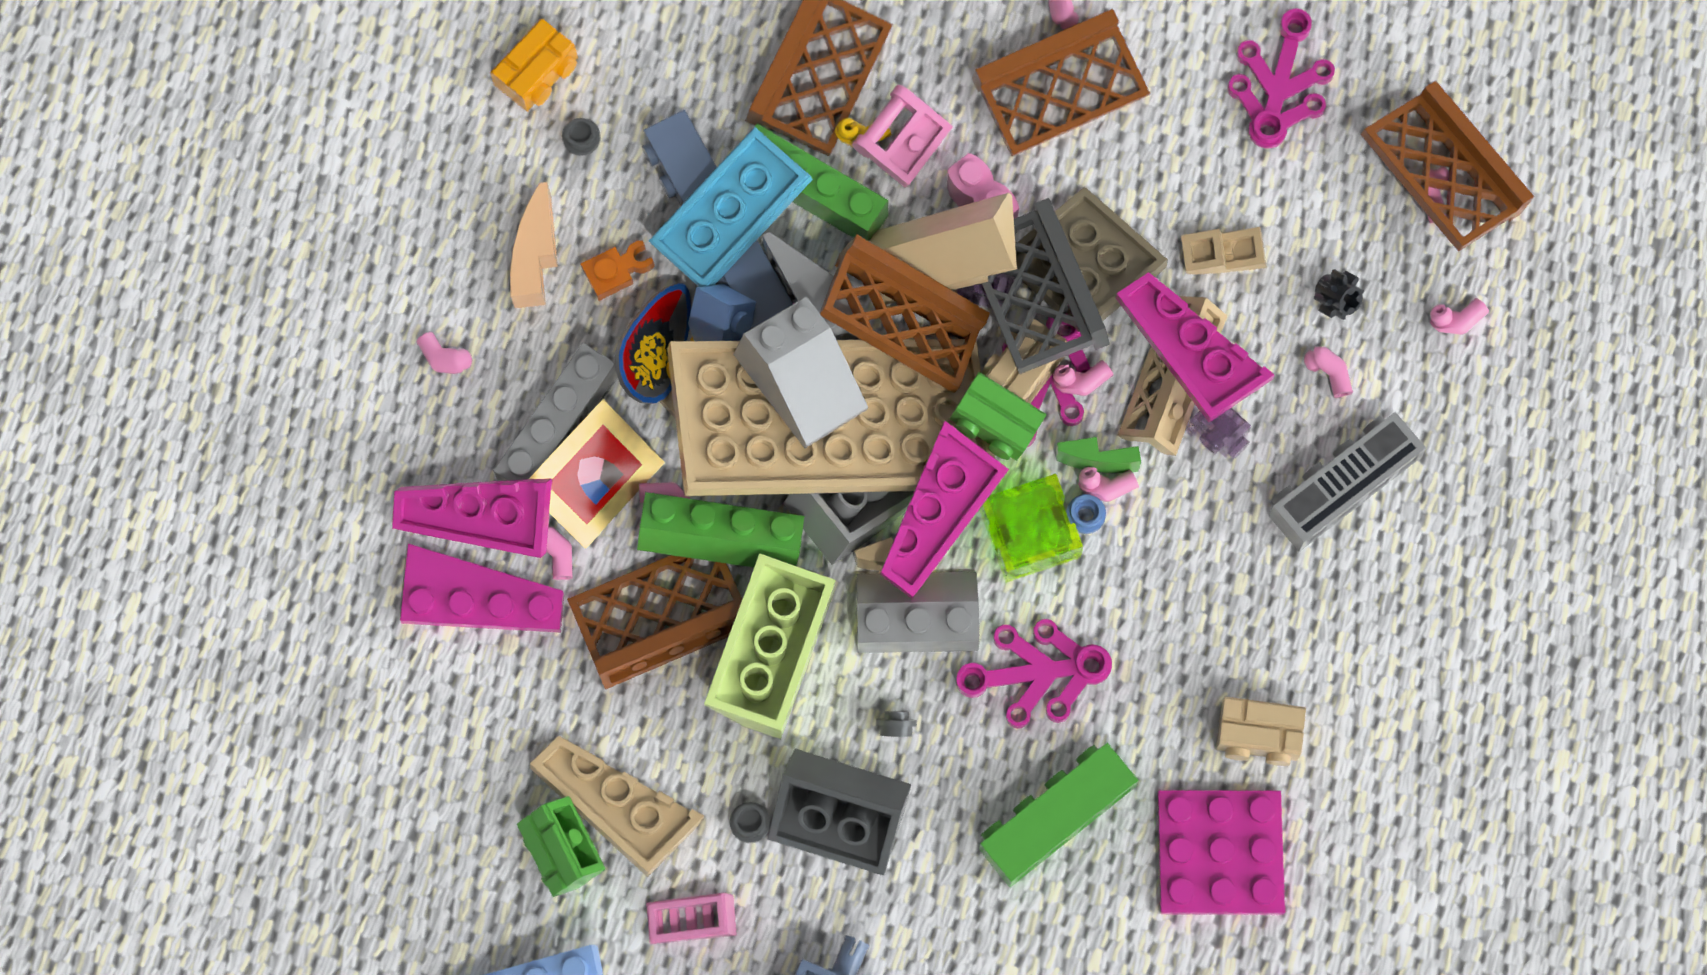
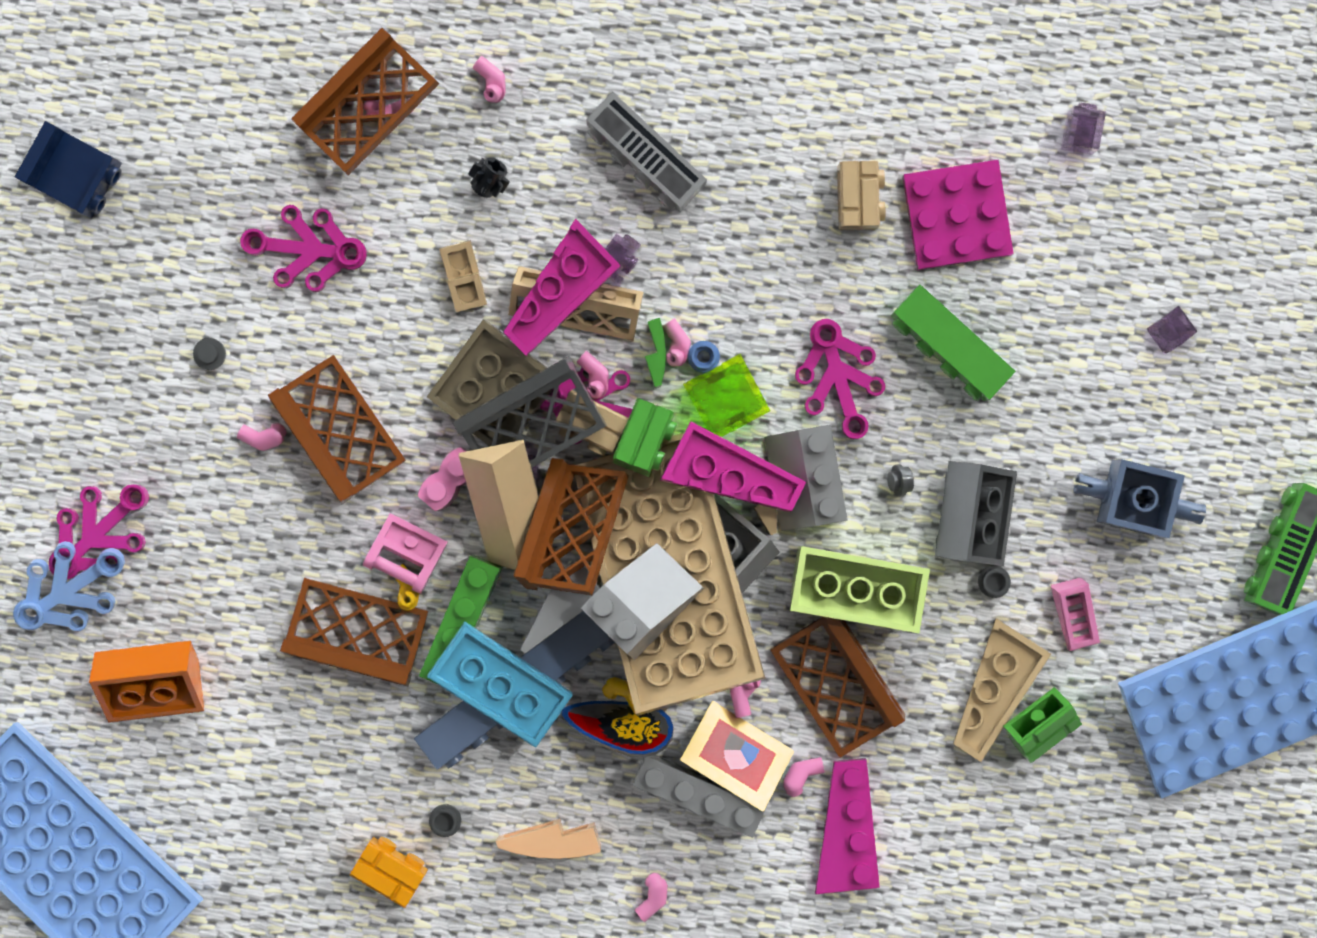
camera: 105 degrees left, 15 degrees up
(484, 514) = (787, 837): dark pink wing -> none
(611, 272) = (560, 773): orange plate -> none
(717, 531) = (774, 643): bright green brick -> none
(720, 314) = (595, 675): medium blue slope -> none
(1334, 366) = (548, 176): bright pink arm -> none

